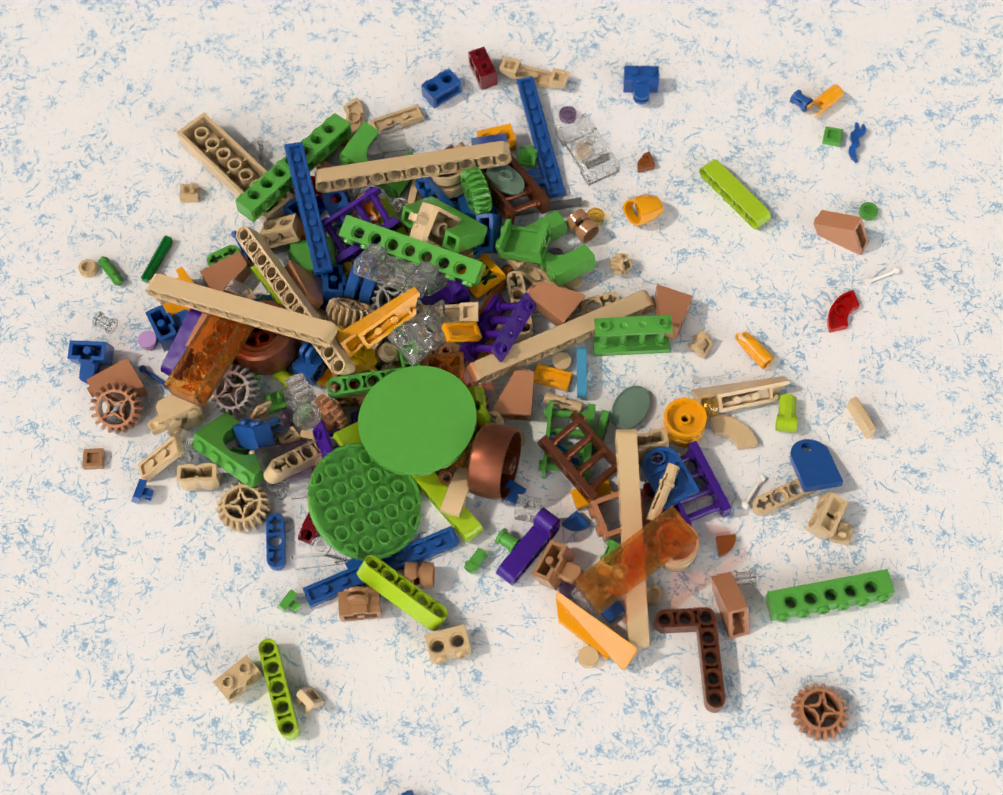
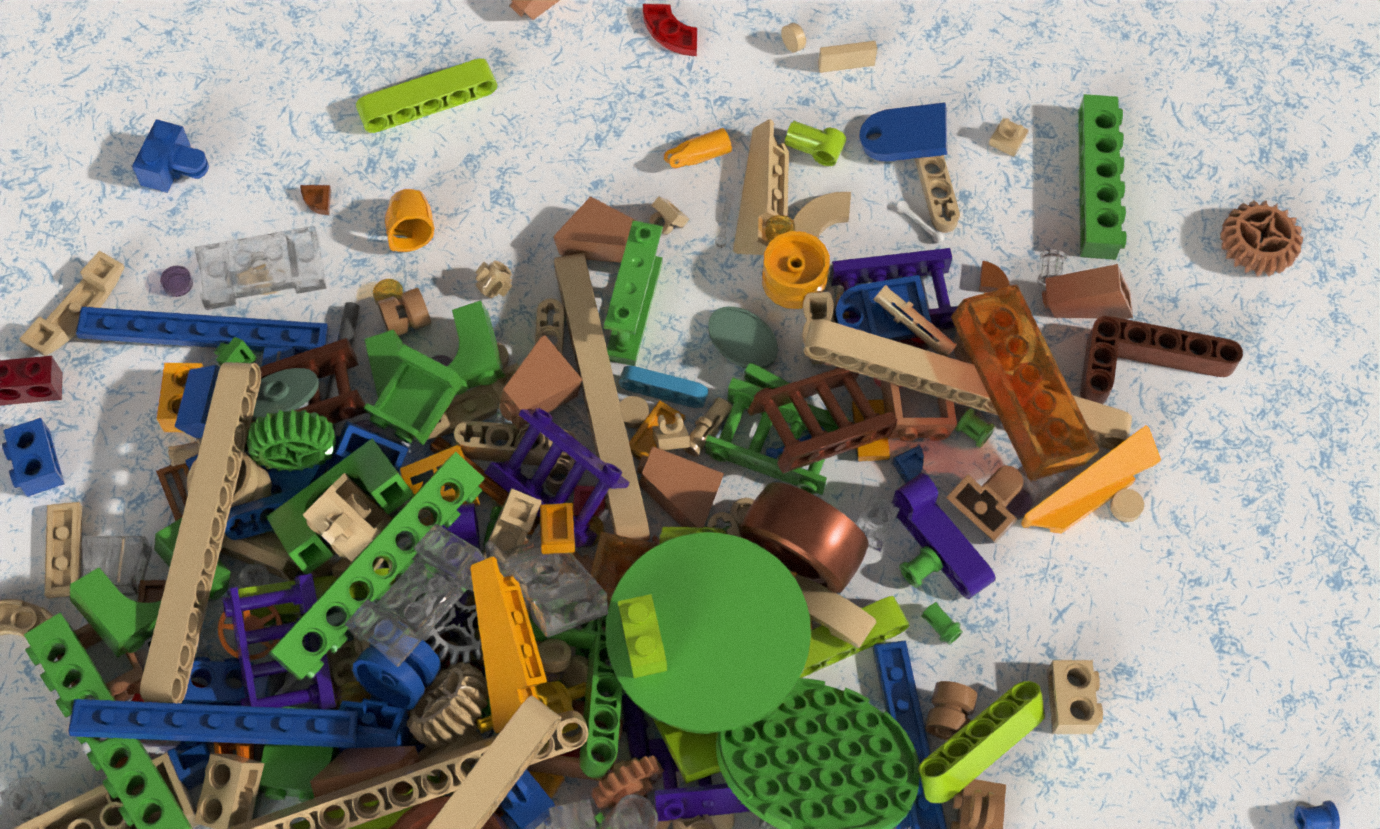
camera: 80 degrees left, 0 degrees up
(399, 383) = (642, 636): none -> lime brick
(547, 381) = (671, 435): none -> tan tile
(826, 515) = (987, 139): tan brick -> none
(863, 382) = (793, 37): none -> tan tile

